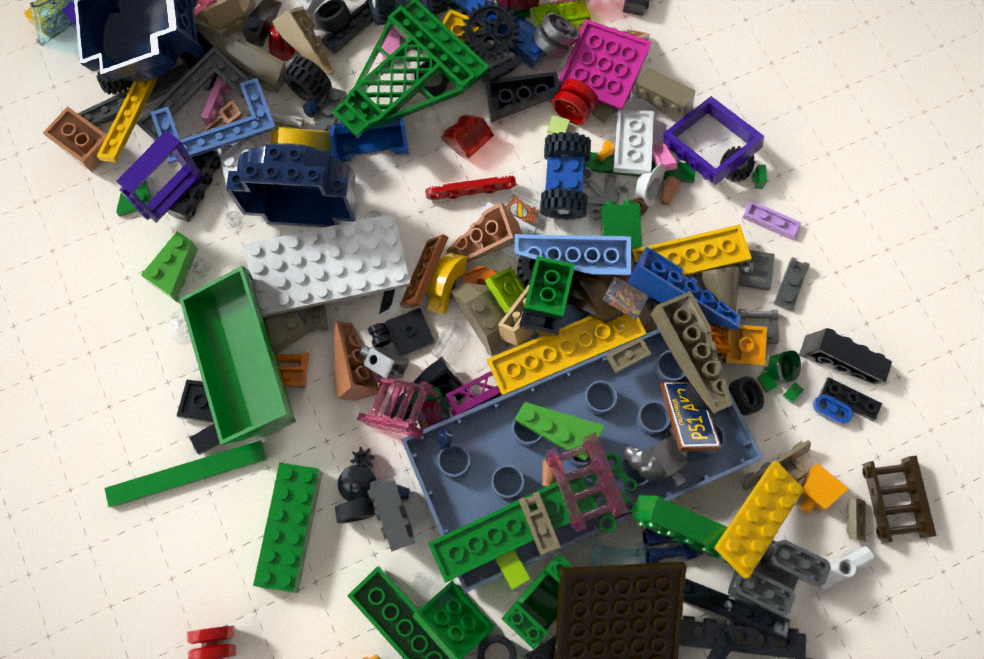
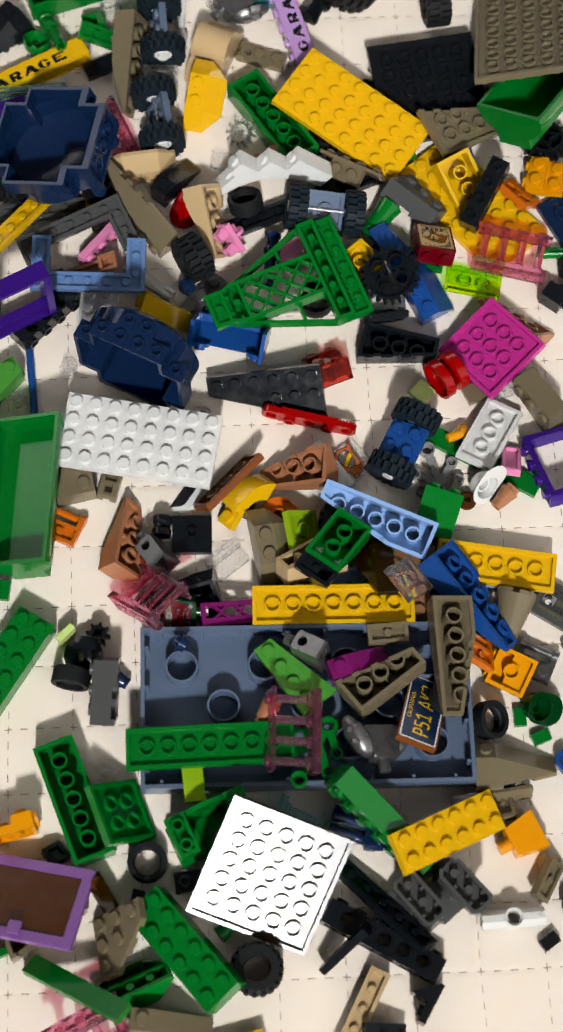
camera: 20 degrees right, 5 degrees down
(205, 247) = (32, 381): none -> blue bar
(332, 48) = (232, 237): none -> bright pink hips
(332, 471) = (66, 634): none -> yellowish green tile
(370, 39) = (272, 239): none -> dark blue pin
(443, 164) = (289, 387): none -> black wing
(539, 524) = (234, 751): dark tan plate -> none
(555, 35) = (454, 302): flat silver wheel -> none
(572, 401) = (309, 649): none -> flat silver torso
(612, 395) = (356, 661): none -> magenta slope
(636, 411) = (377, 684): none -> dark tan wedge
(782, 430) = (505, 765): none -> dark tan wedge
(881, 574) = (549, 941): none -> black piece

